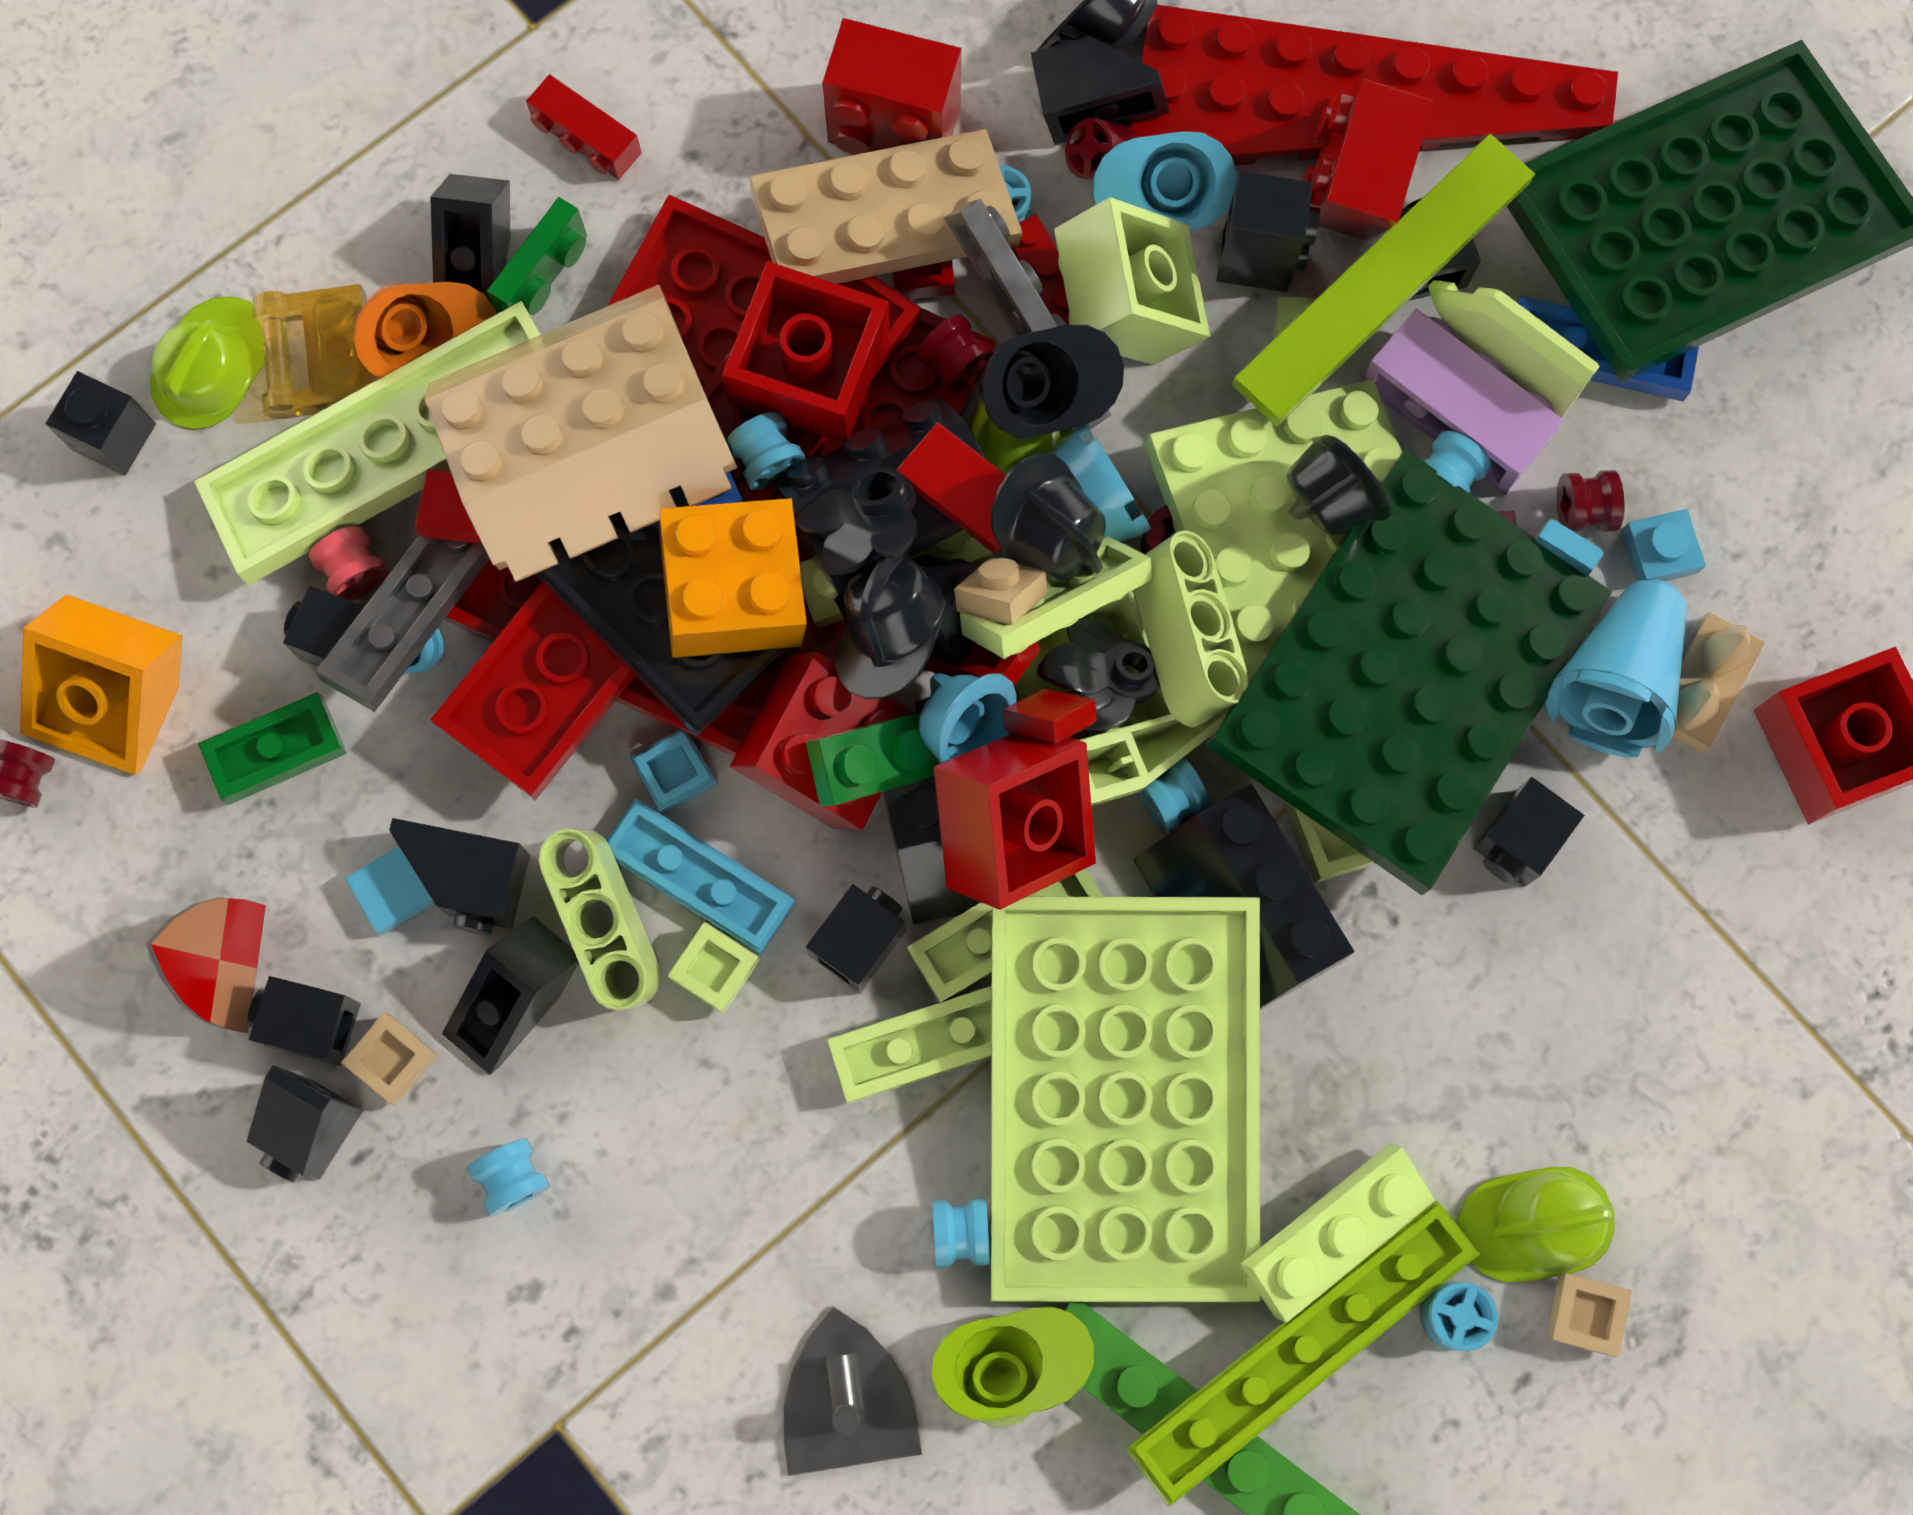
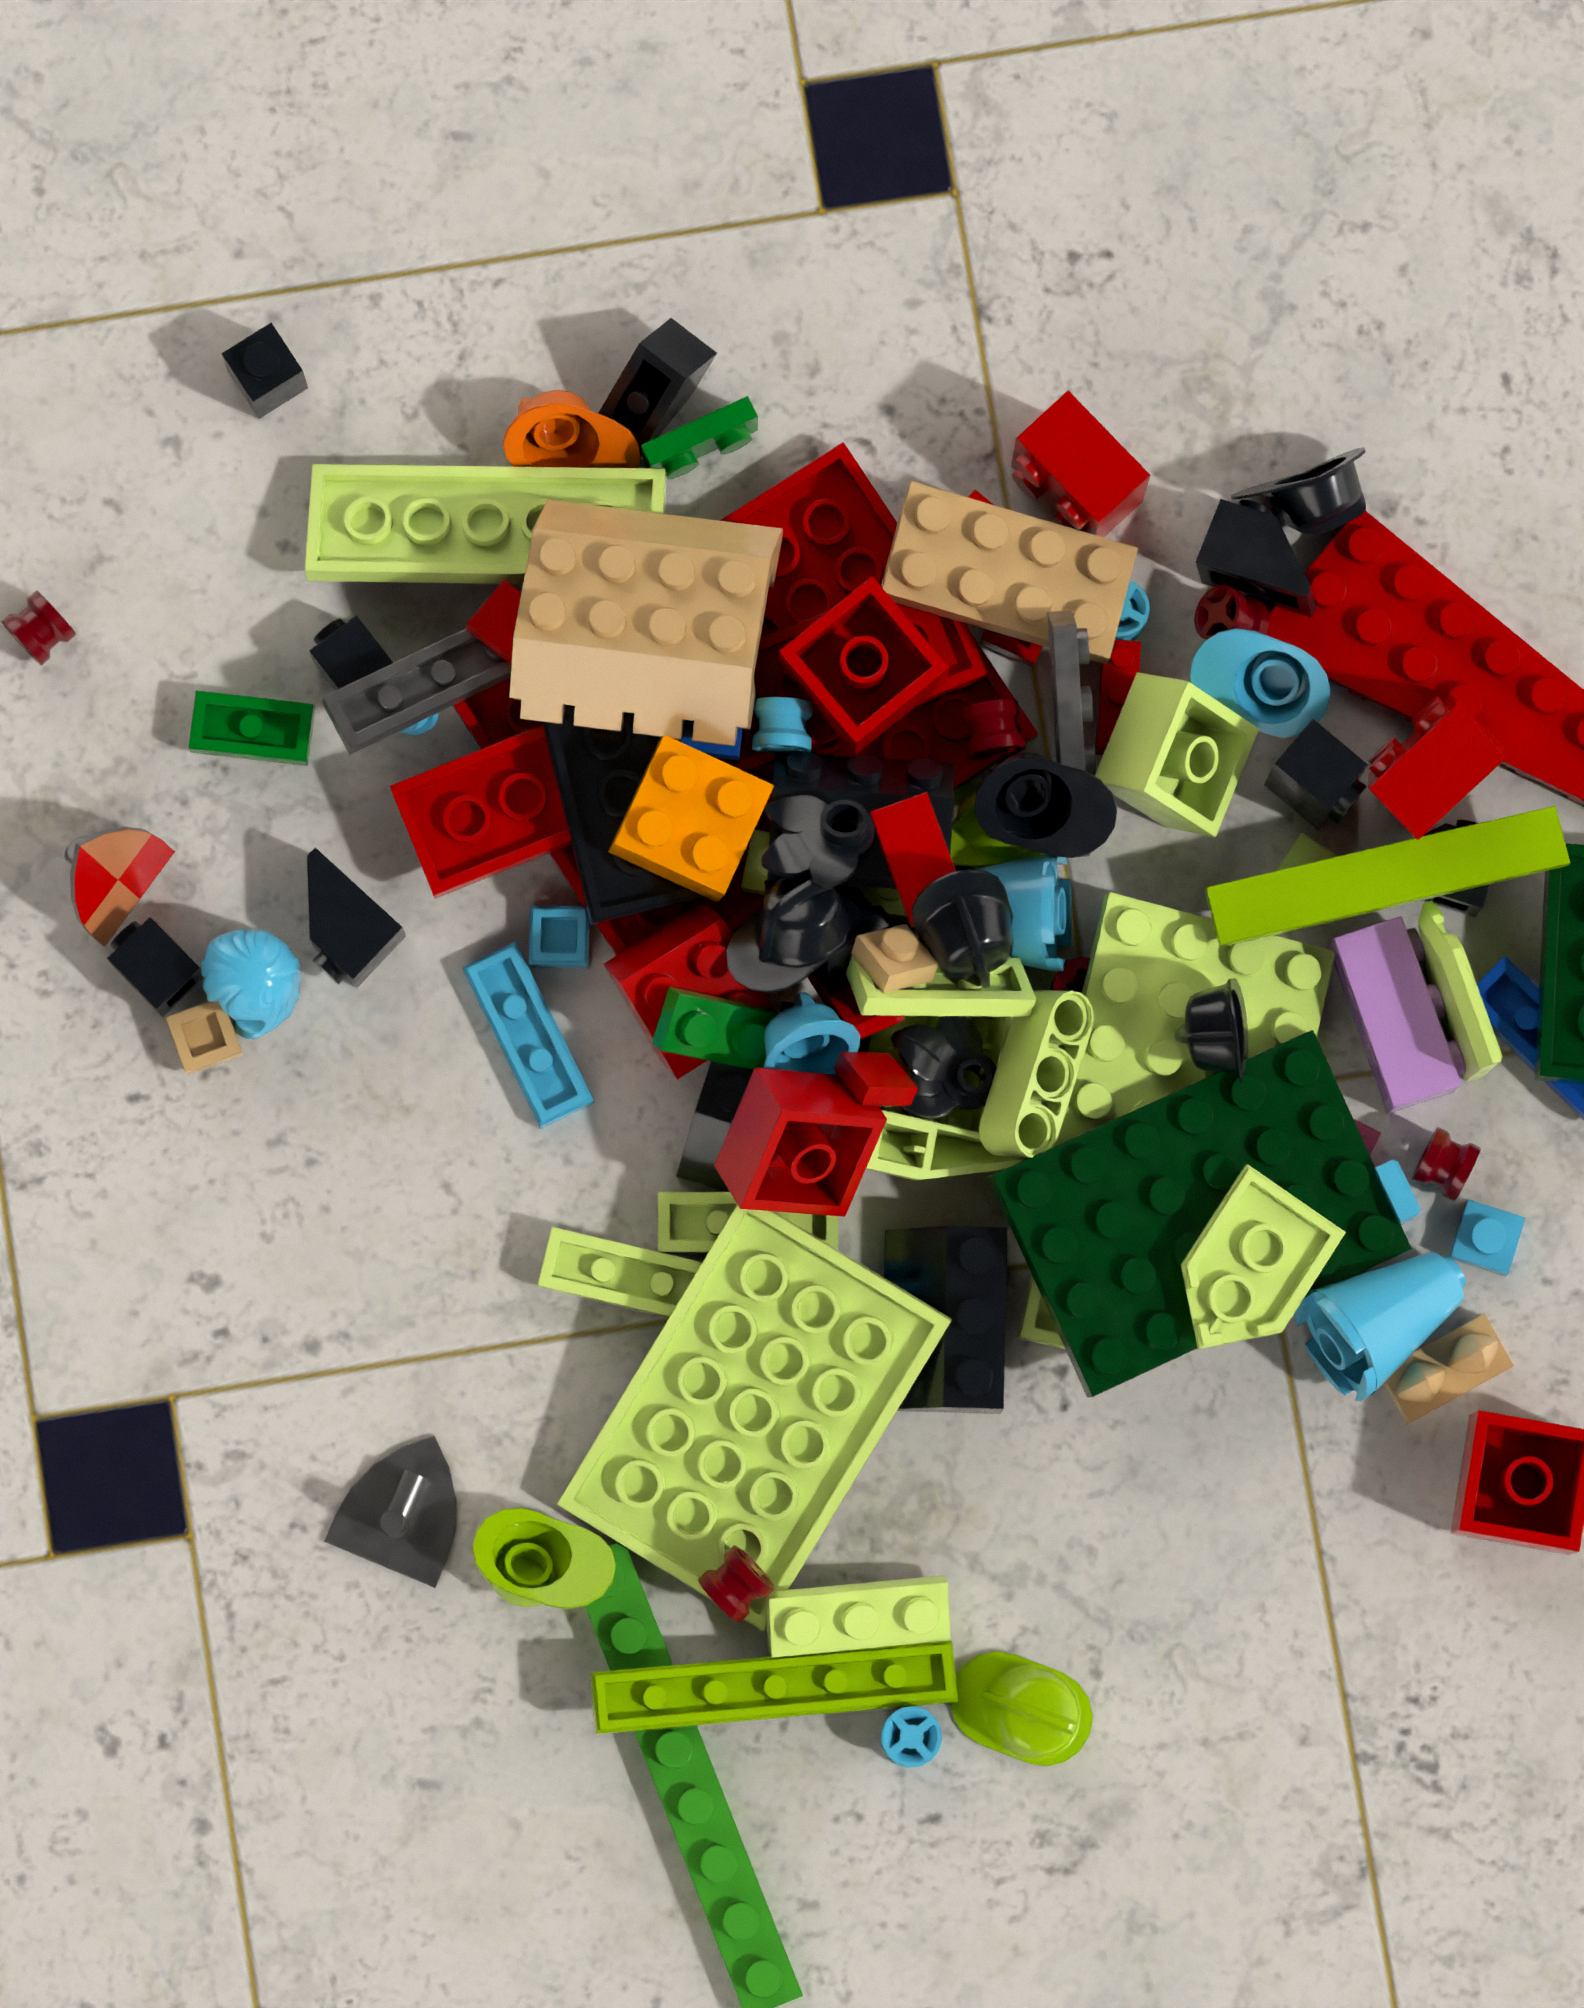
camera: 30 degrees right, 5 degrees up
(97, 682) = (144, 591): light orange slope -> none
(207, 363) = (382, 360): lime piece -> none
(299, 1124) = (107, 1048): black slope -> none
(329, 346) = (488, 407): clear yellow plate -> none
(348, 563) = (397, 609): coral wheel -> none
(389, 891) = (279, 900): medium azure tile -> none
(402, 975) = (252, 979): none -> medium azure hair
(508, 1177) = (243, 1184): medium azure wheel -> none
(510, 993) = (327, 1041): black slope -> none
(575, 898) = (418, 996): yellowish green beam -> none
(583, 127) = (808, 335): red piece -> none
(714, 967) = (497, 1116): yellowish green plate -> none
(858, 935) = (626, 1160): black brick -> none
(961, 1232) = (565, 1438): medium azure wheel -> none
(1175, 796) = (946, 1201): medium azure wheel -> none
(1212, 1273) = (736, 1583): none -> dark red wheel
(1458, 459) = (1352, 1065): medium azure wheel -> none
(1496, 677) = (1254, 1261): none -> yellowish green tile
(1527, 833) = (1210, 1401): black brick -> none
(1589, 1314) = (1012, 1797): tan plate -> none

